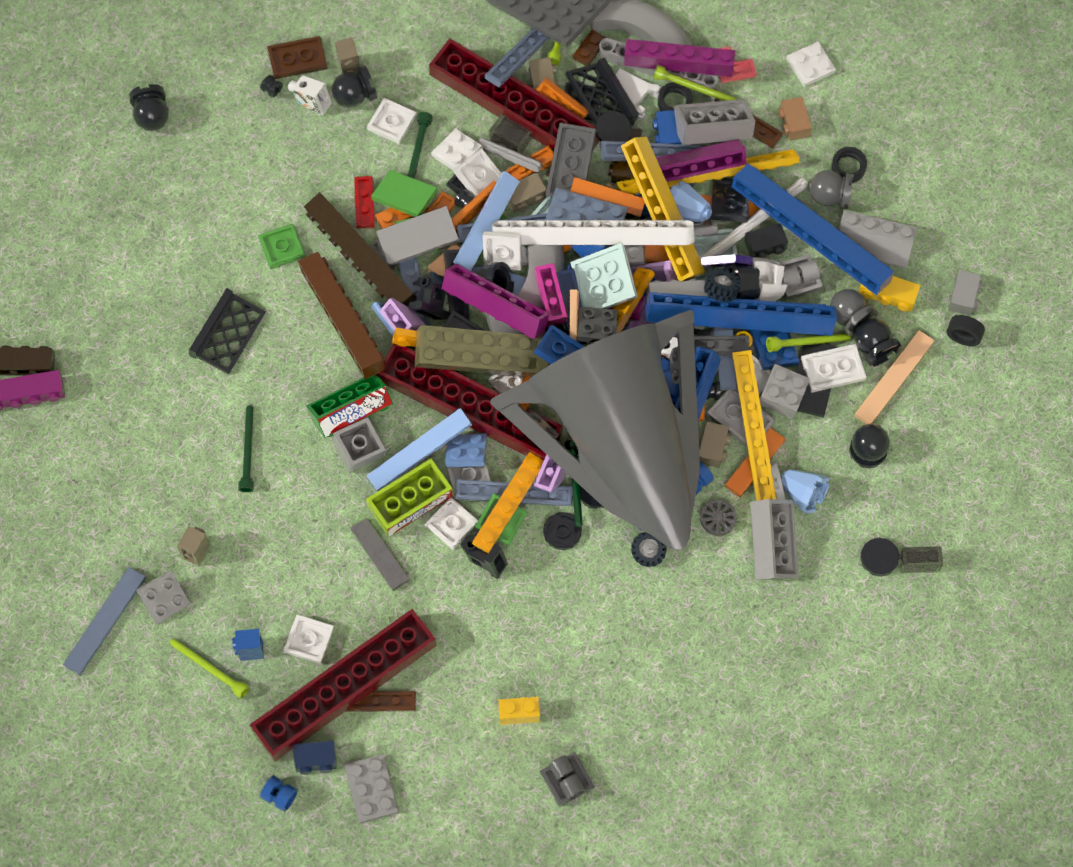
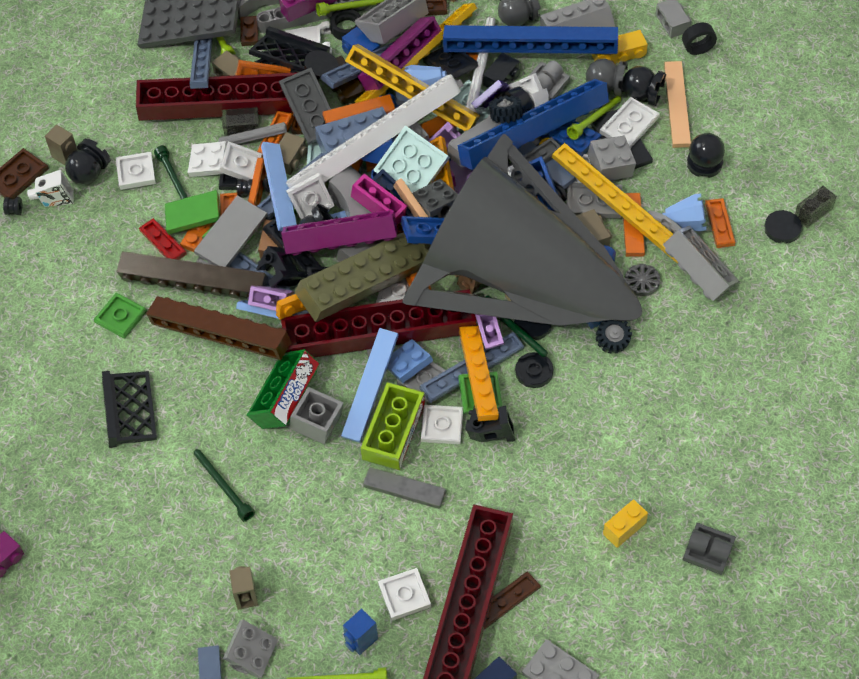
camera: 35 degrees left, 10 degrees down
(829, 514) = (720, 223): none -> orange tile

